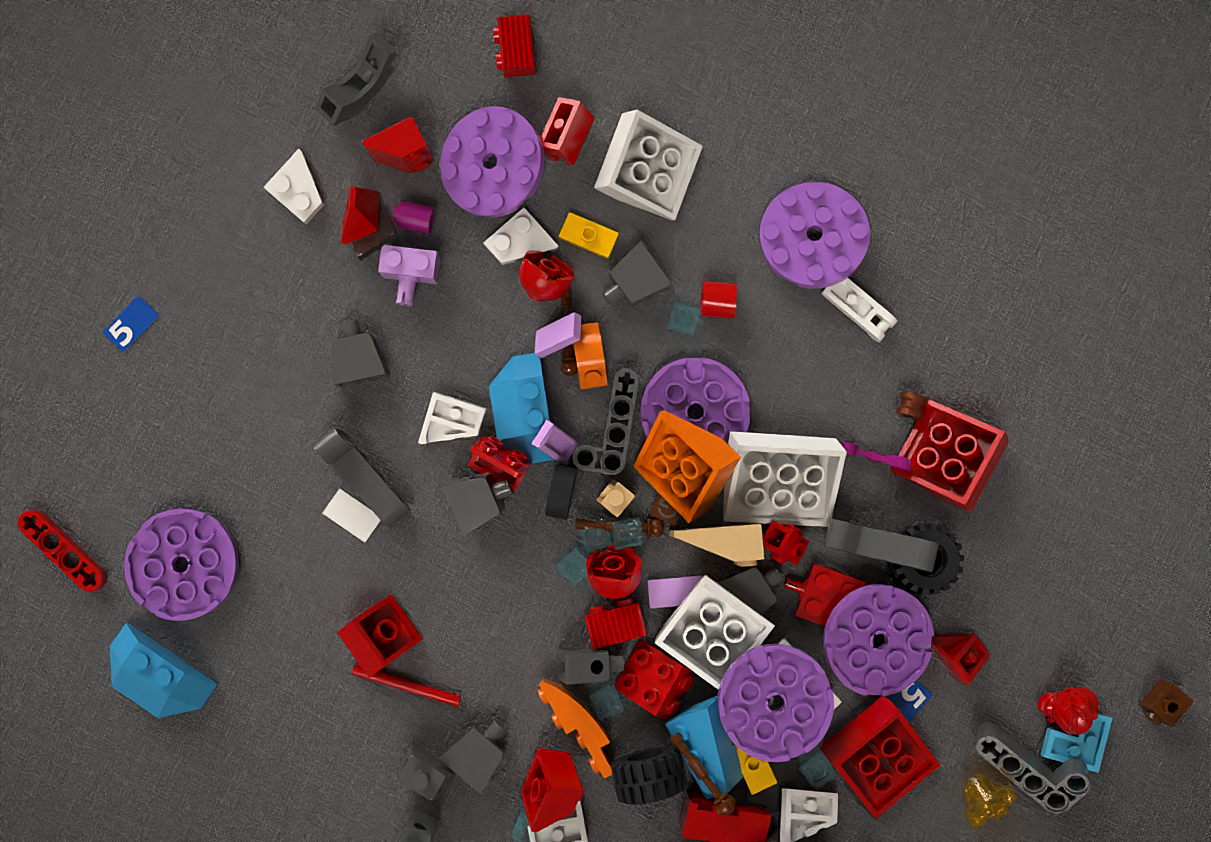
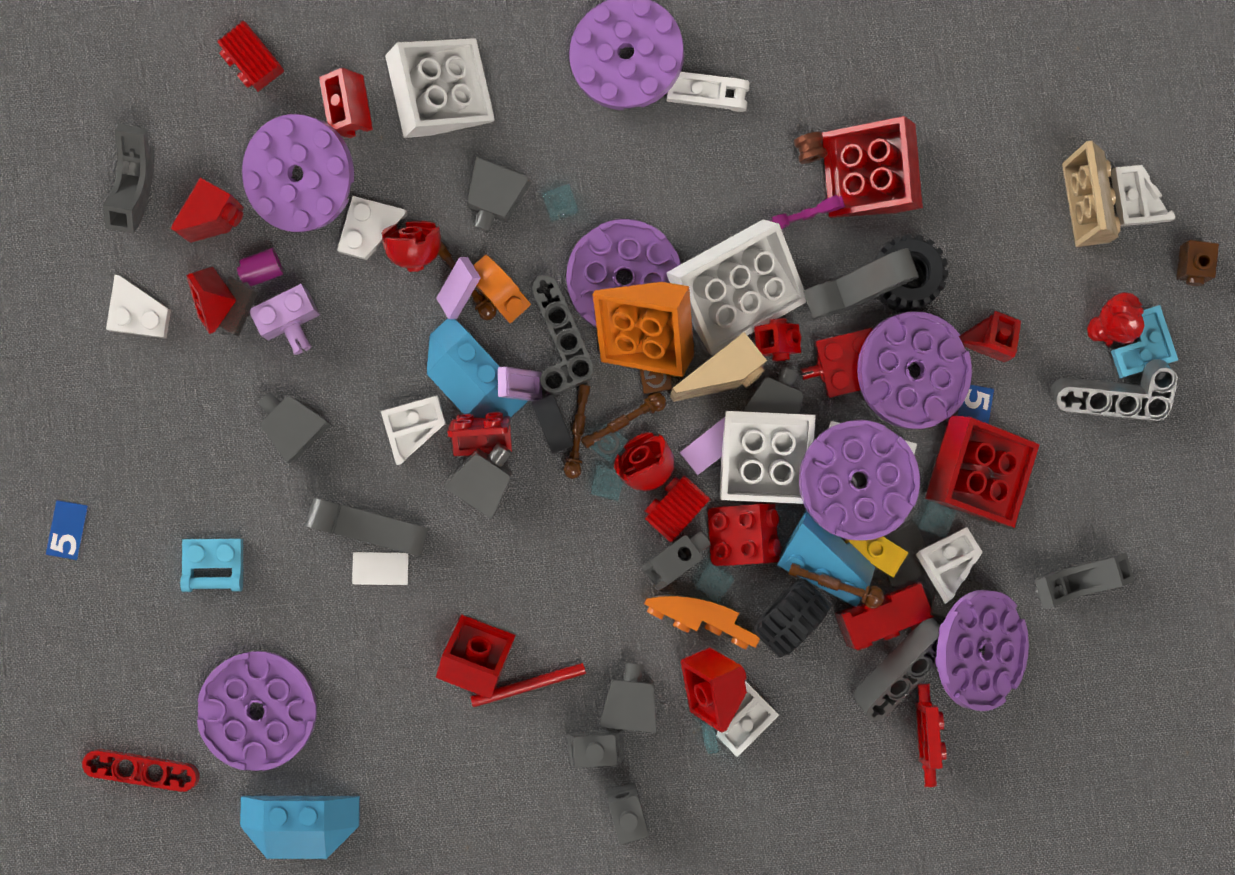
camera: 30 degrees left, 0 degrees up
(230, 419) = (212, 554): none -> medium azure plate
(555, 536) = (572, 467): none -> reddish brown piece
(588, 235) = (427, 183): yellow plate -> none
(615, 498) = (604, 398): tan brick -> none
(627, 533) = (634, 422): clear light blue tile -> none
(718, 299) = (579, 164): red piece -> none
(986, 800) = (1098, 447): clear yellow plate -> none
(1113, 593) = (1090, 196): none -> tan slope
(1150, 618) = (1137, 197): none -> white wing

